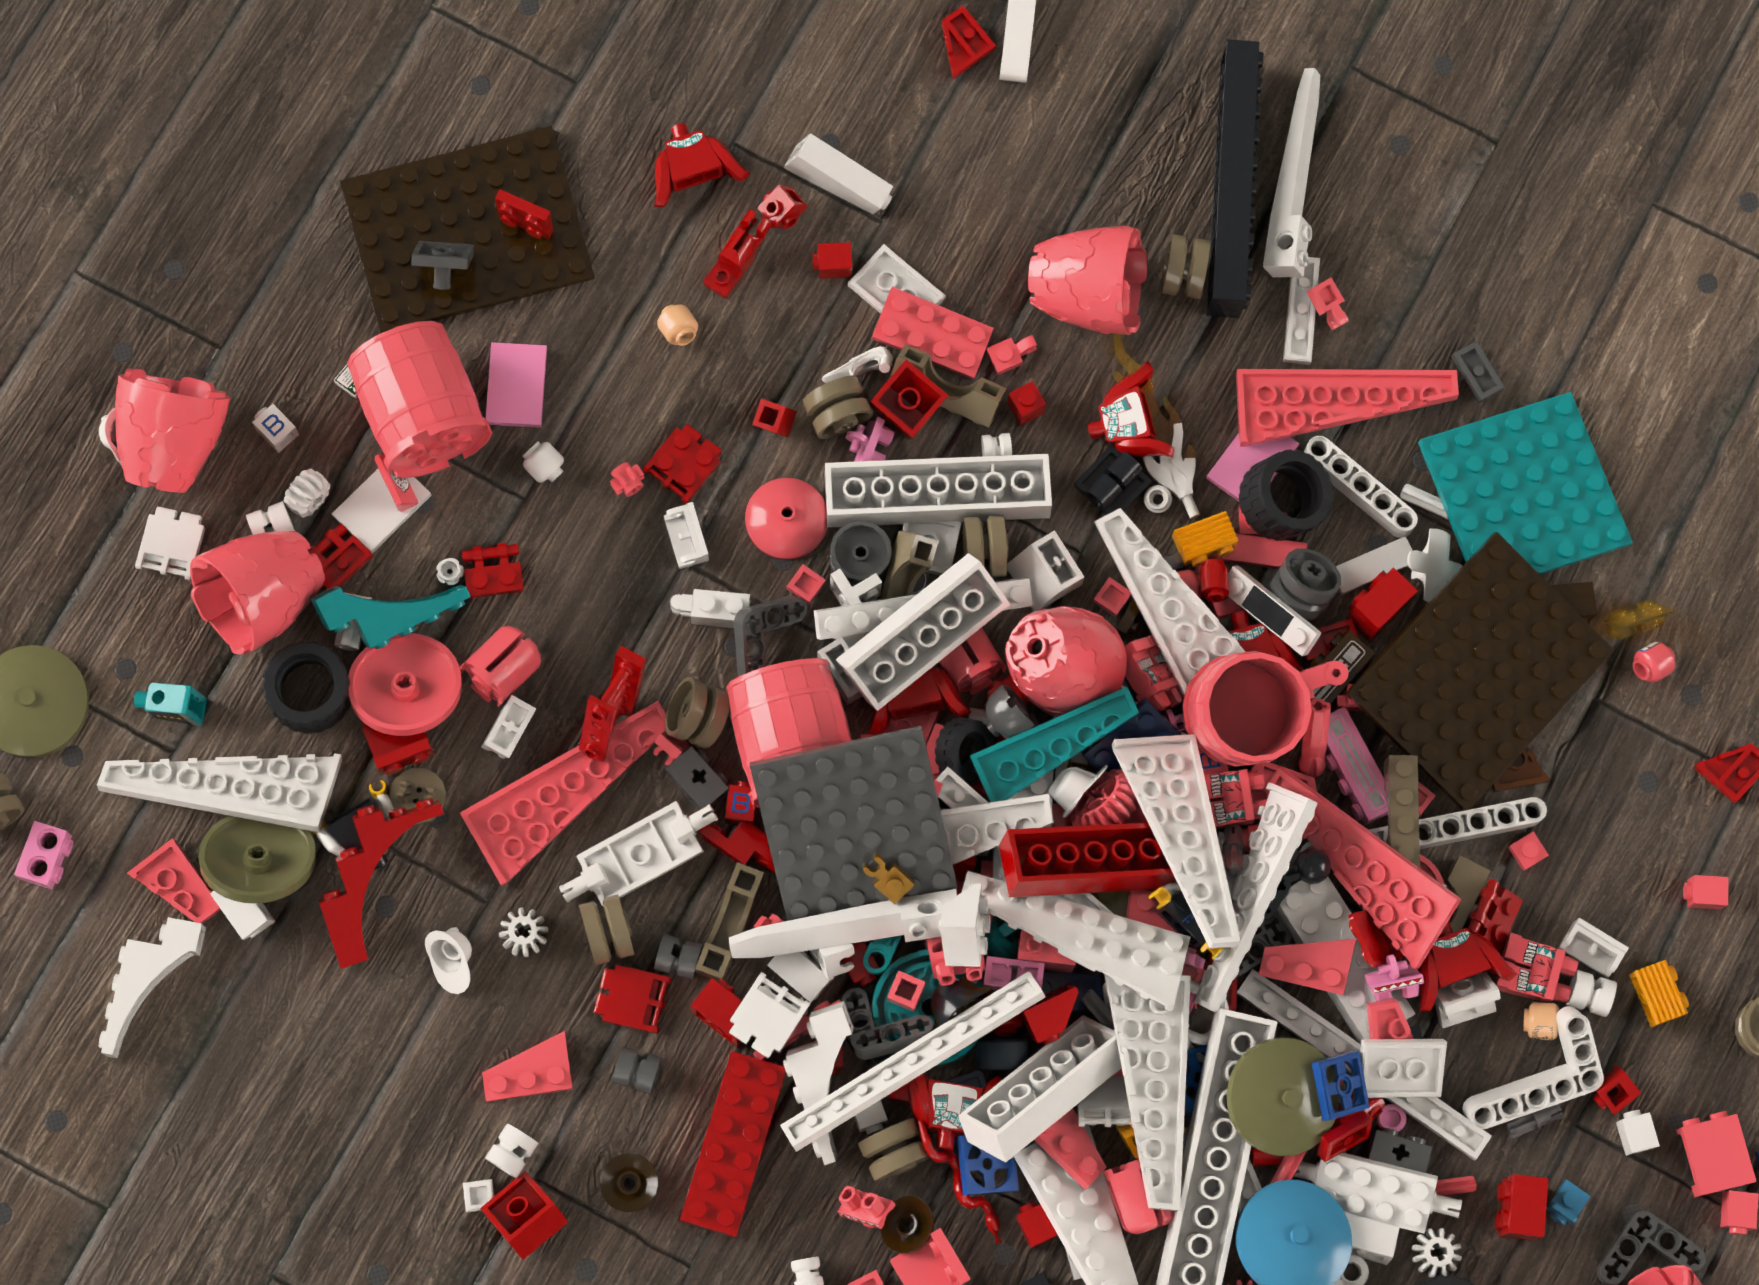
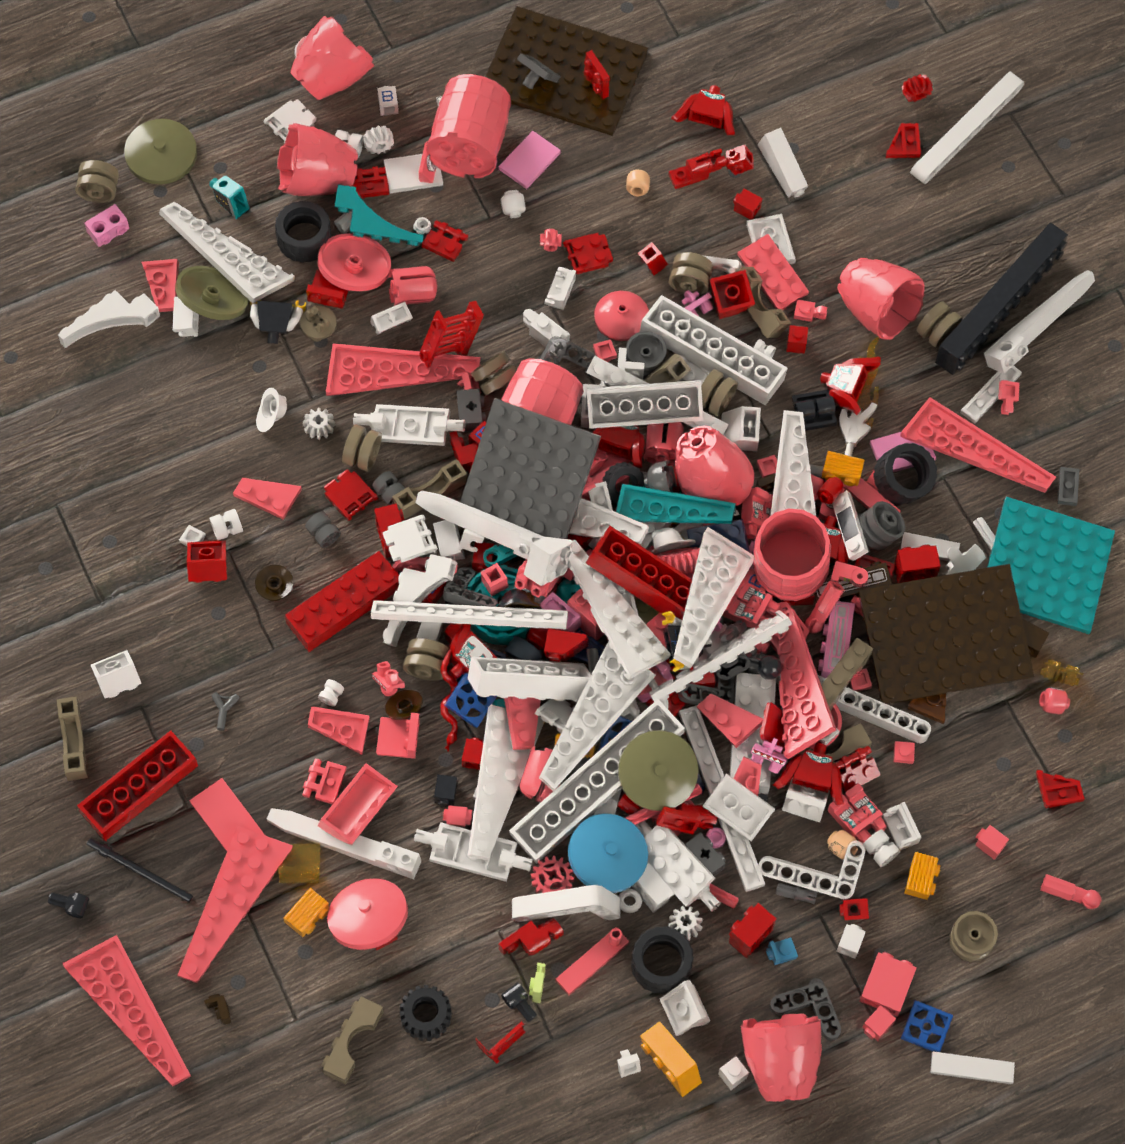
camera: 40 degrees right, 10 degrees down
(344, 909) = (233, 348): red arch -> none
(890, 880) = (529, 514): pearl gold plate -> none
(1151, 493) = (833, 430): white plate -> none
(1325, 1089) = (683, 780): blue piece -> none
(1375, 490) = (953, 509): white beam -> none

